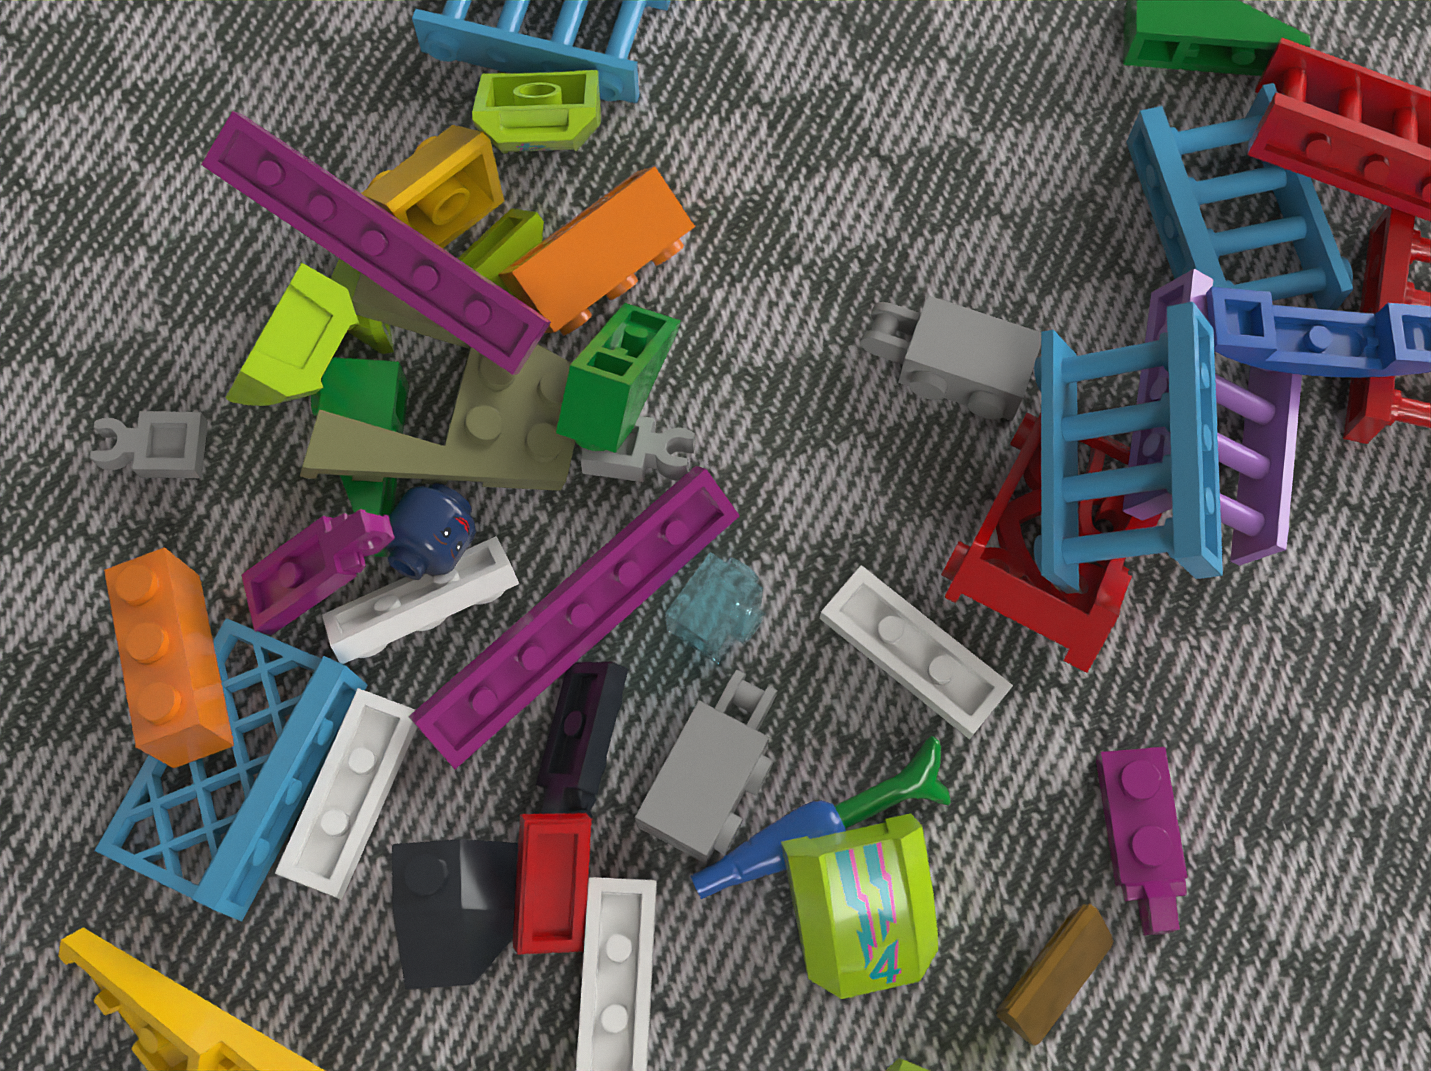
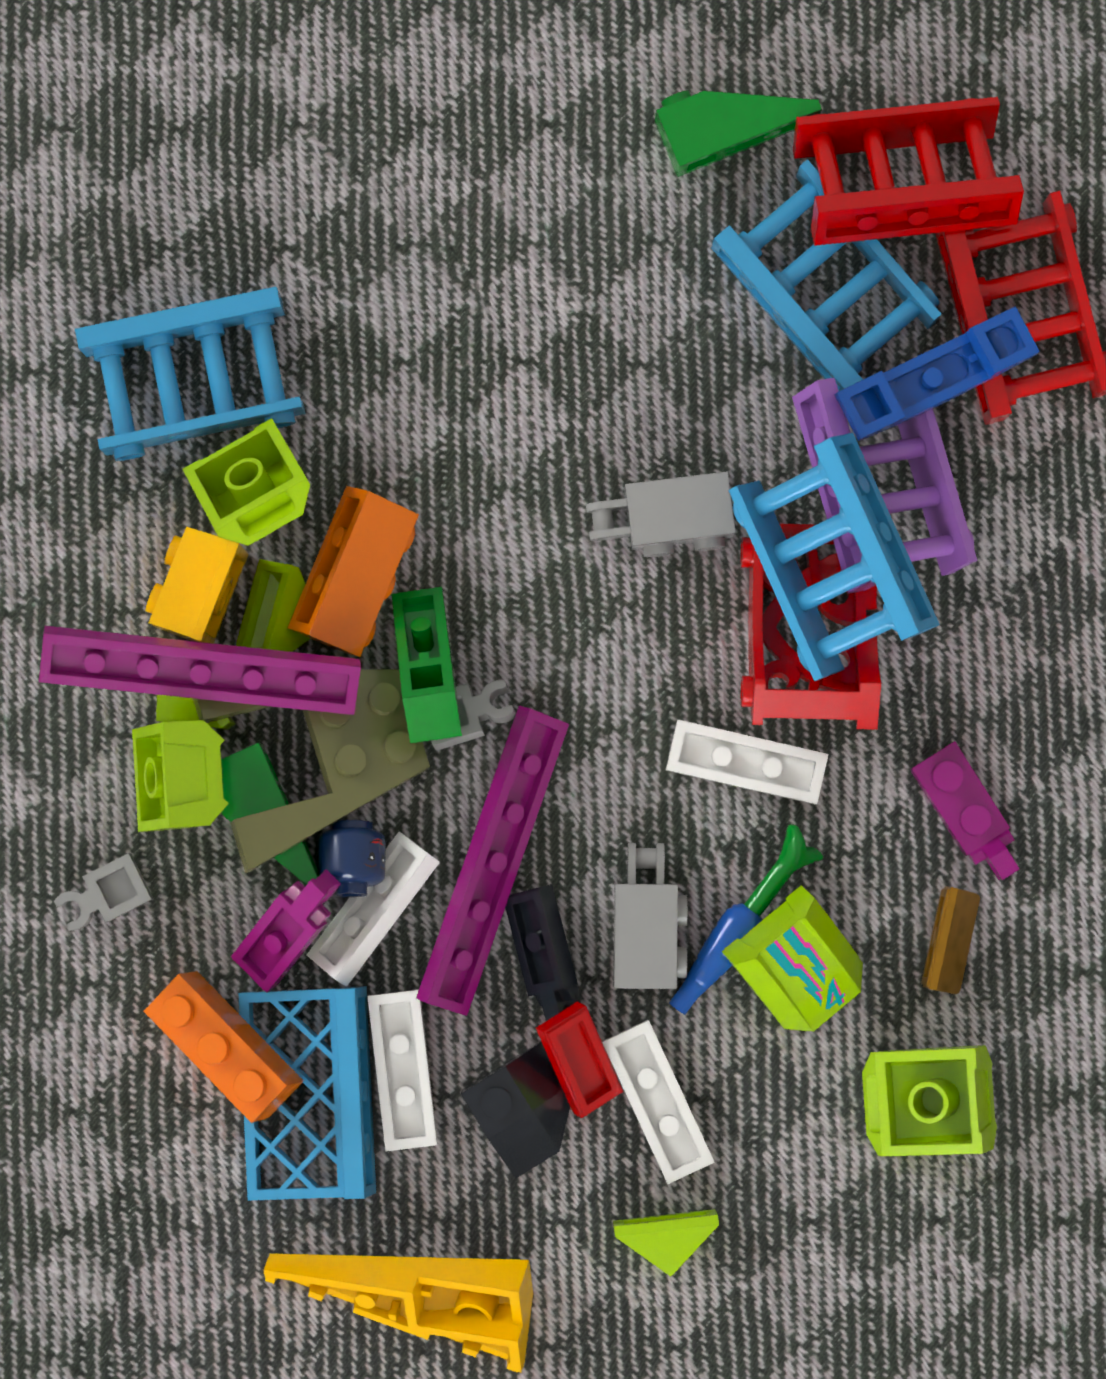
camera: 30 degrees left, 15 degrees up
(717, 607) = (591, 803): clear light blue brick -> none

